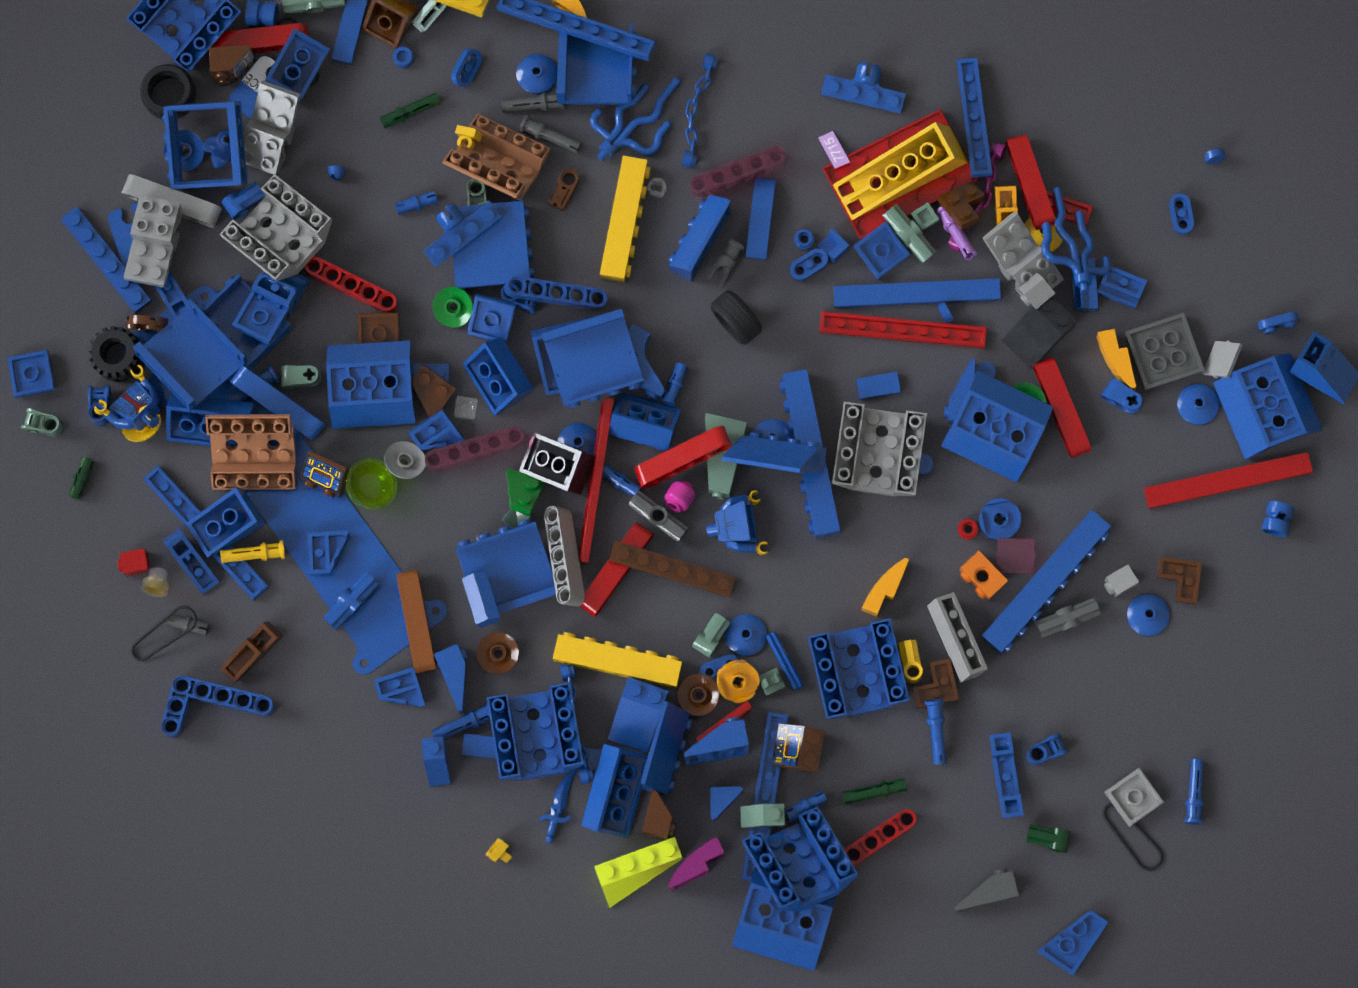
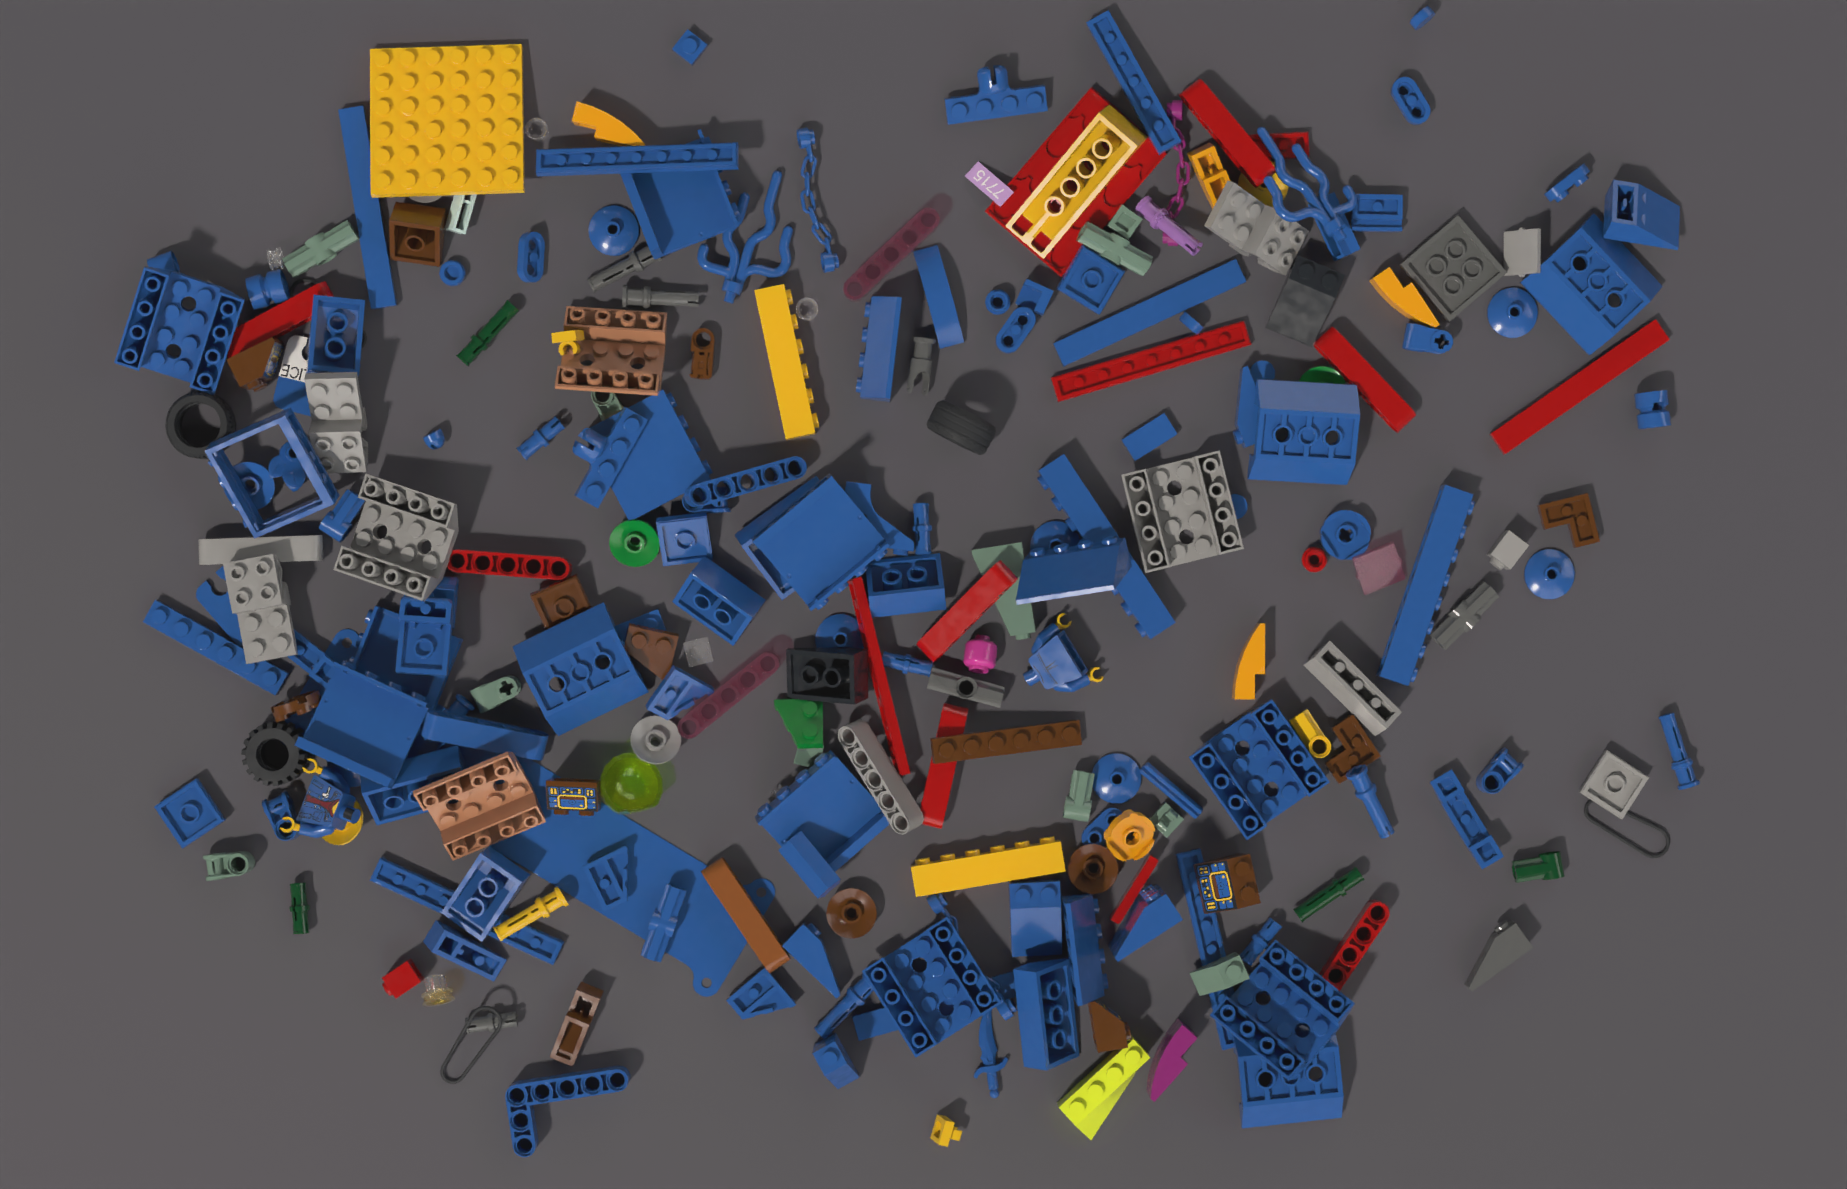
camera: 30 degrees left, 10 degrees up
(722, 798) = (1166, 971): blue slope -> none
(959, 202) = (1157, 194): reddish brown plate -> none
(977, 564) = (1367, 607): orange brick -> none
(1035, 291) = (1287, 261): light grey brick -> none
(1074, 943) = (1611, 970): blue wing -> none

